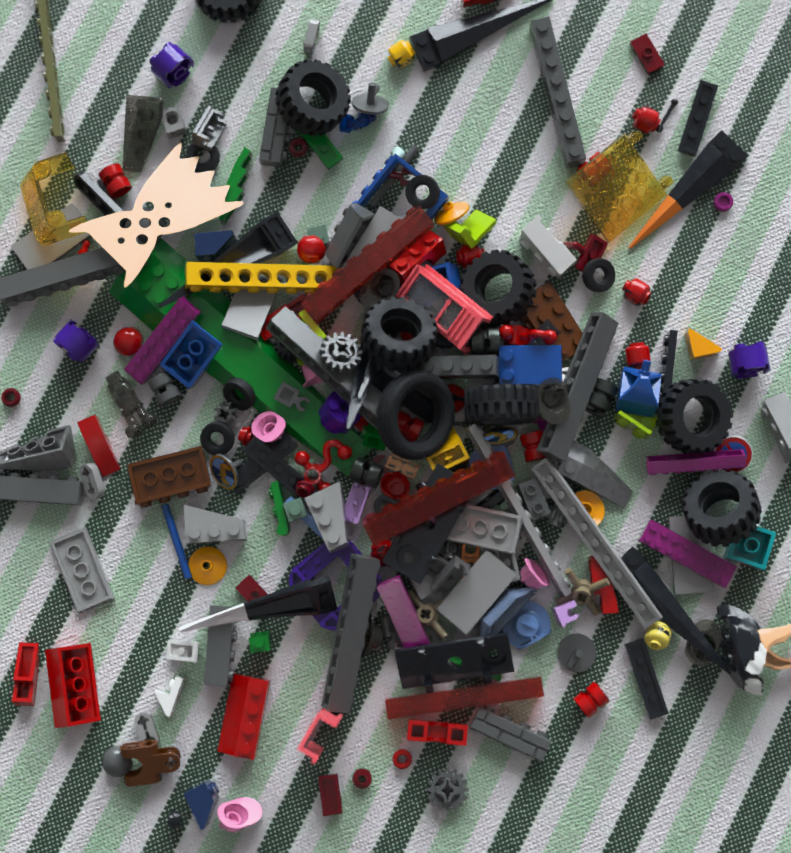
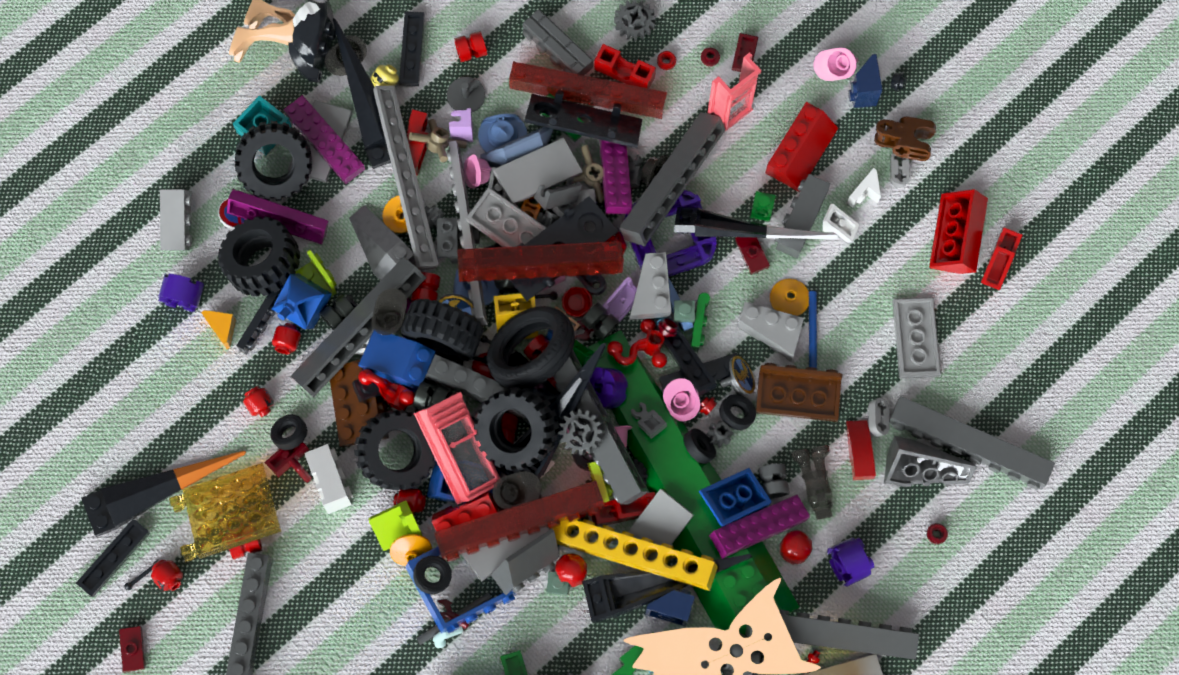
camera: 165 degrees left, 10 degrees down
(114, 763) = (940, 151): dark grey hair -> none
(723, 202) = (129, 462): magenta tile -> none

